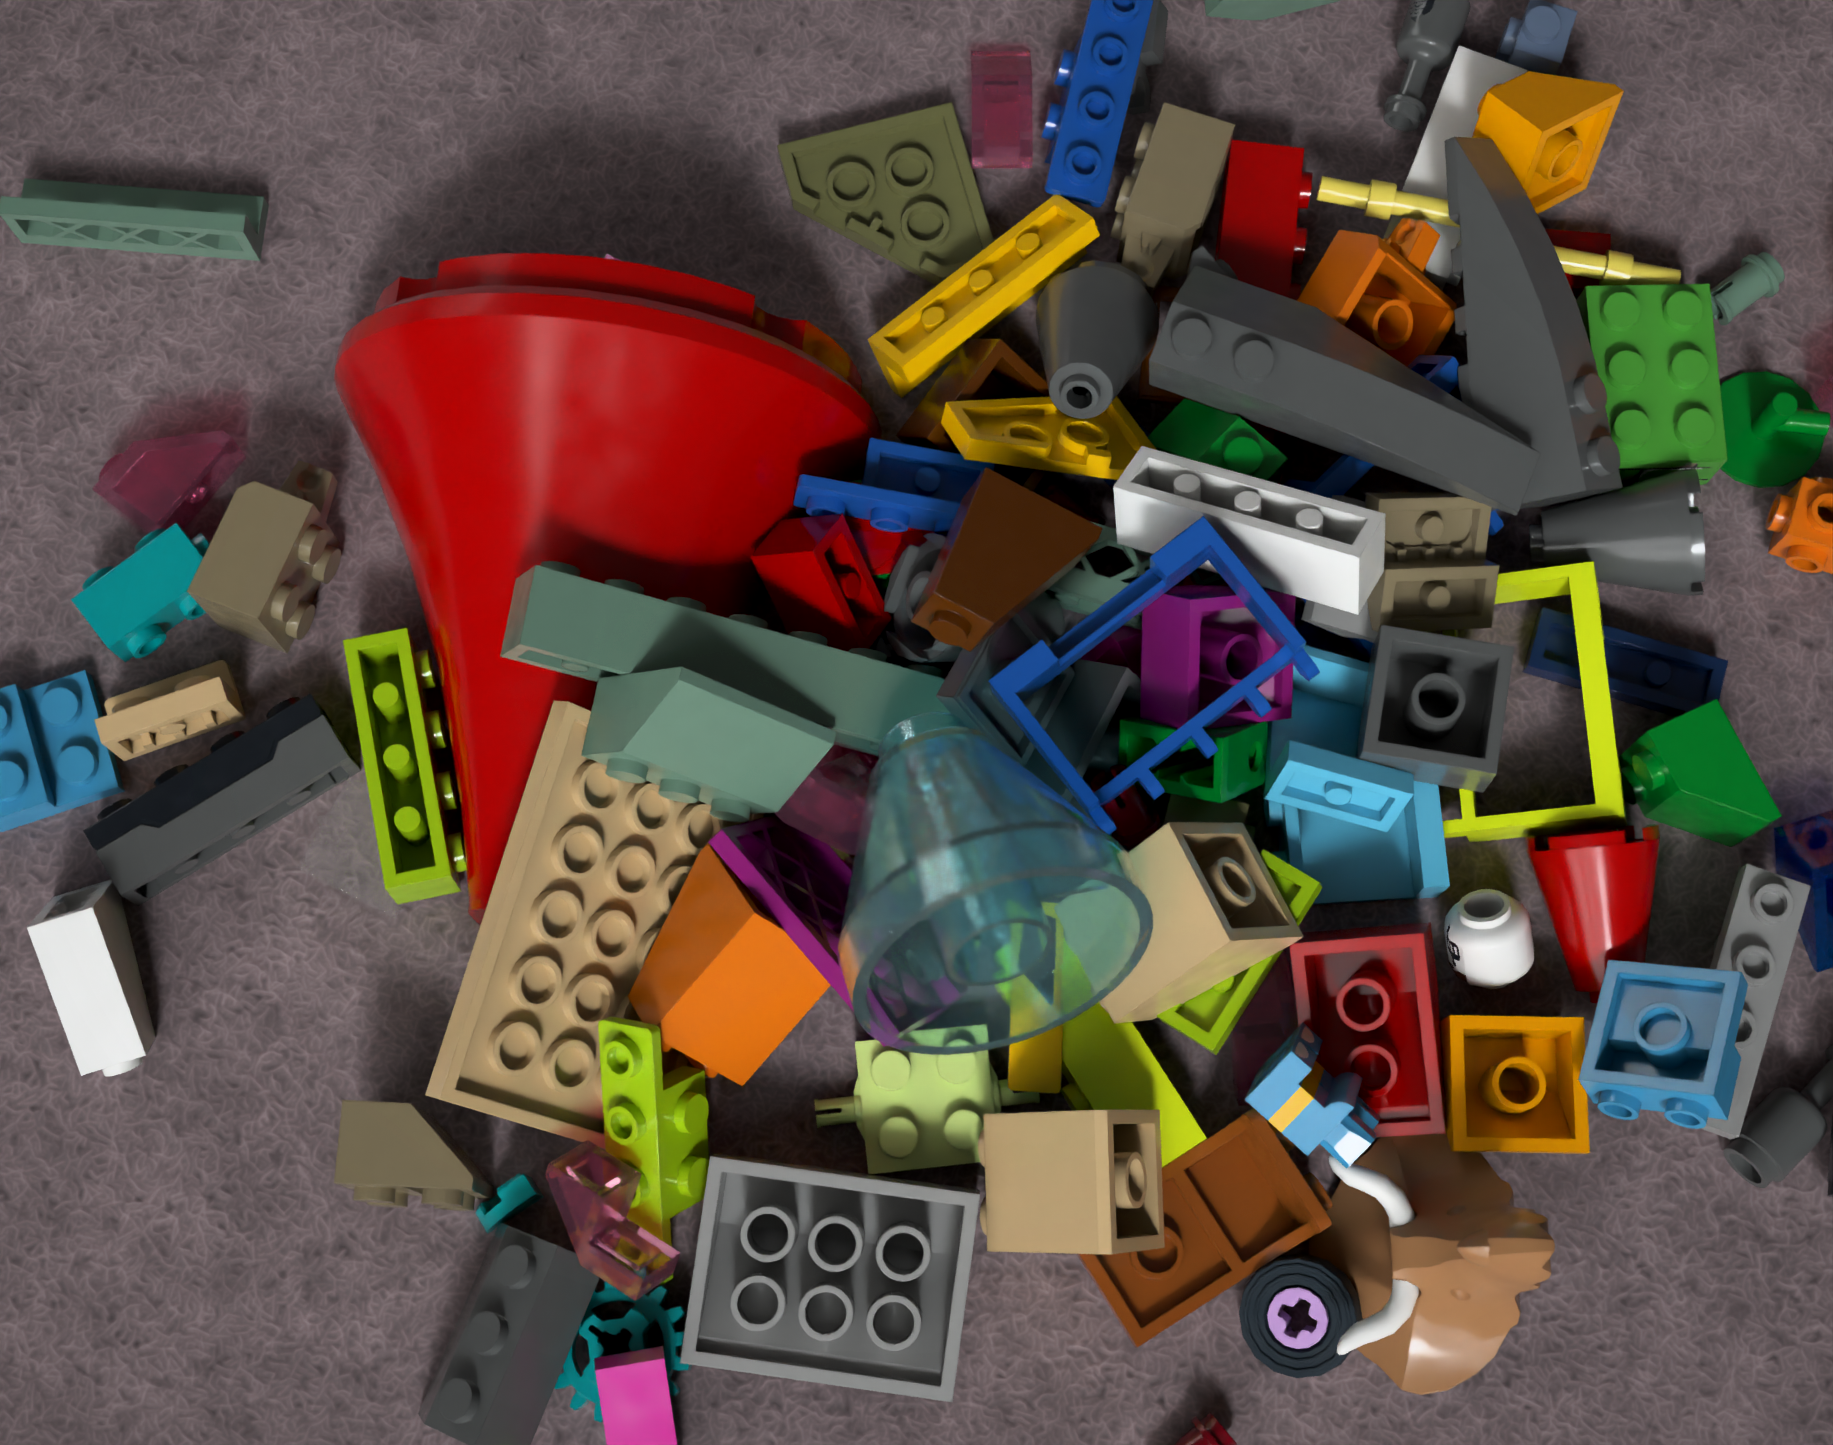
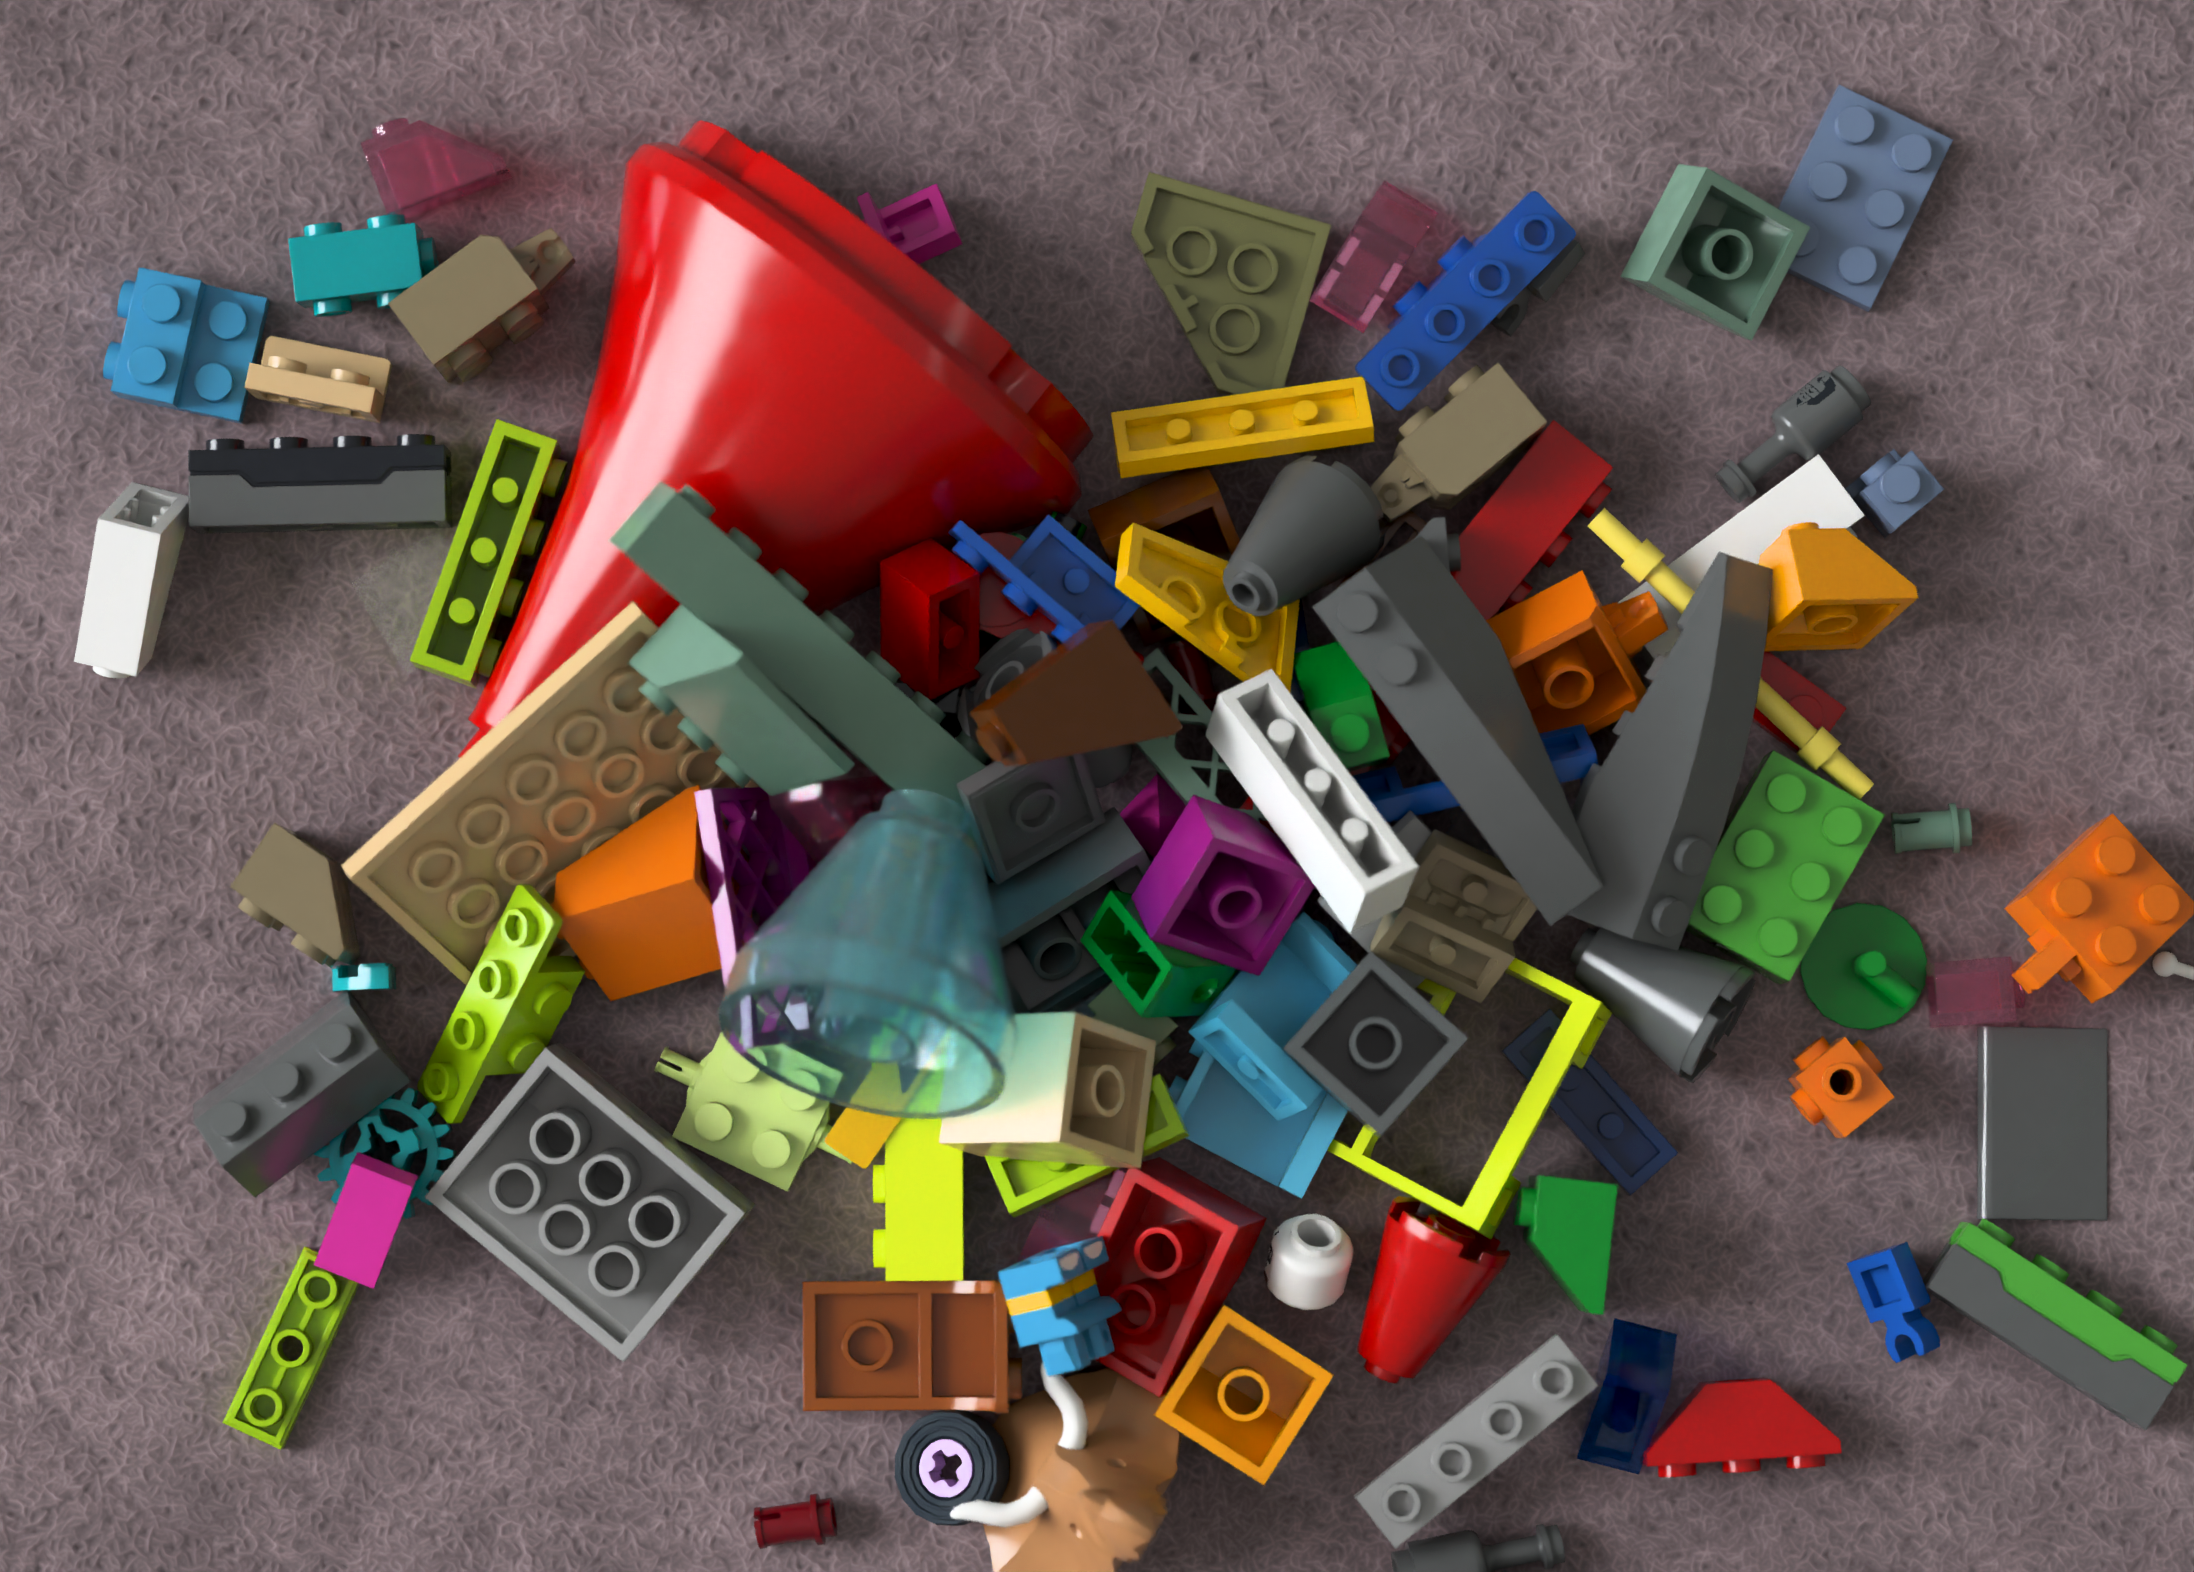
camera: 30 degrees right, 10 degrees up
(594, 1202) = (429, 1026): clear pink slope -> none
(1072, 1181) = (827, 1249): tan slope -> none
(1129, 811) = (1071, 978): dark red pin -> none
(1167, 568) = (1064, 813): blue hinge -> none
(1665, 1042) = (1378, 1435): dark azure plate -> none

